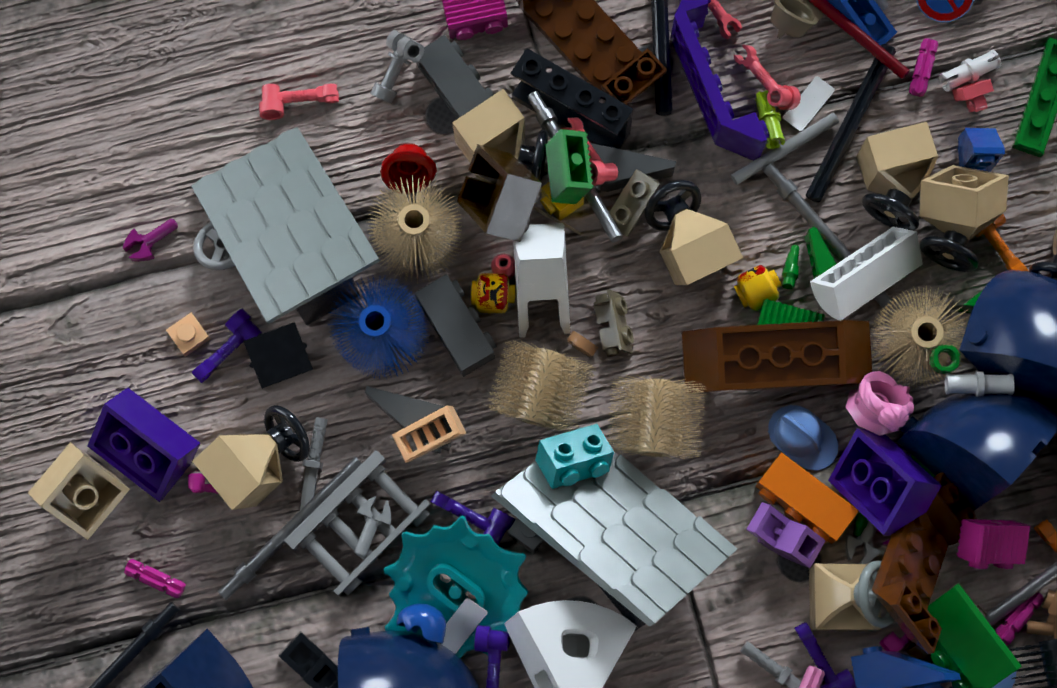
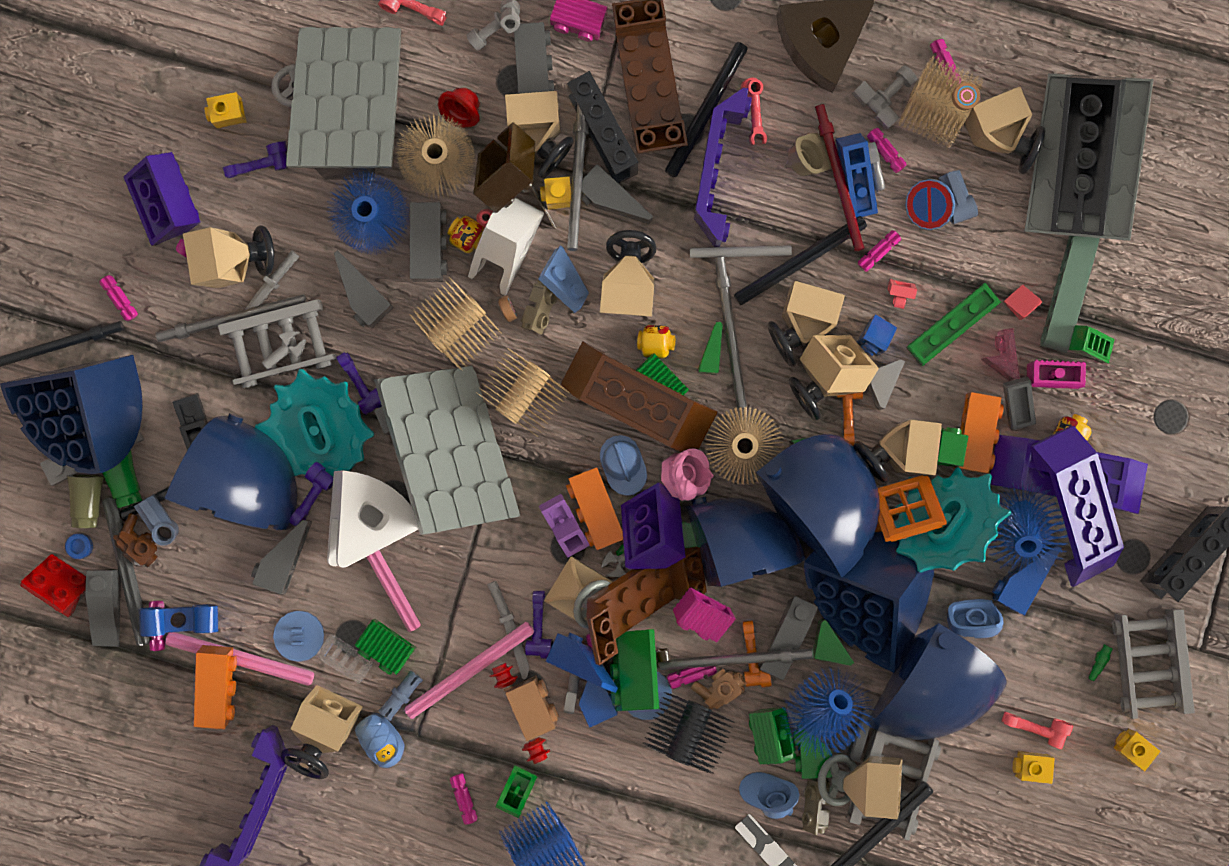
camera: 30 degrees right, 10 degrees up
(78, 491) = (94, 207): tan piece -> none
(147, 241) = (247, 51): magenta bar -> none
(159, 312) = (225, 110): none -> yellow brick
(188, 334) = (237, 137): light nougat plate -> none
(278, 355) = (291, 190): black piece -> none
(424, 423) = (379, 311): light nougat slope -> none
(424, 617) = (283, 438): blue hair -> none
(462, 624) = (306, 455): white sticker -> none
(569, 166) = (567, 177): green brick -> none
(574, 456) = (448, 386): teal brick -> none
(601, 171) = (589, 190): coral brick -> none
(623, 280) = (563, 280): none -> medium blue wing
(633, 201) = (603, 227): dark tan hinge -> none
(772, 120) = (741, 224): lime axle -> none
(783, 96) = (758, 209): coral brick -> none
(791, 269) = (689, 341): green piece -> none
(811, 102) = (779, 228): white sticker -> none
(867, 272) = (737, 377): white brick -> none
(951, 351) = (743, 480): green axle -> none
(970, 70) = (910, 273): white pin -> none
(979, 384) = (757, 503): white pin -> none
(1020, 194) = (884, 383): none -> light grey slope

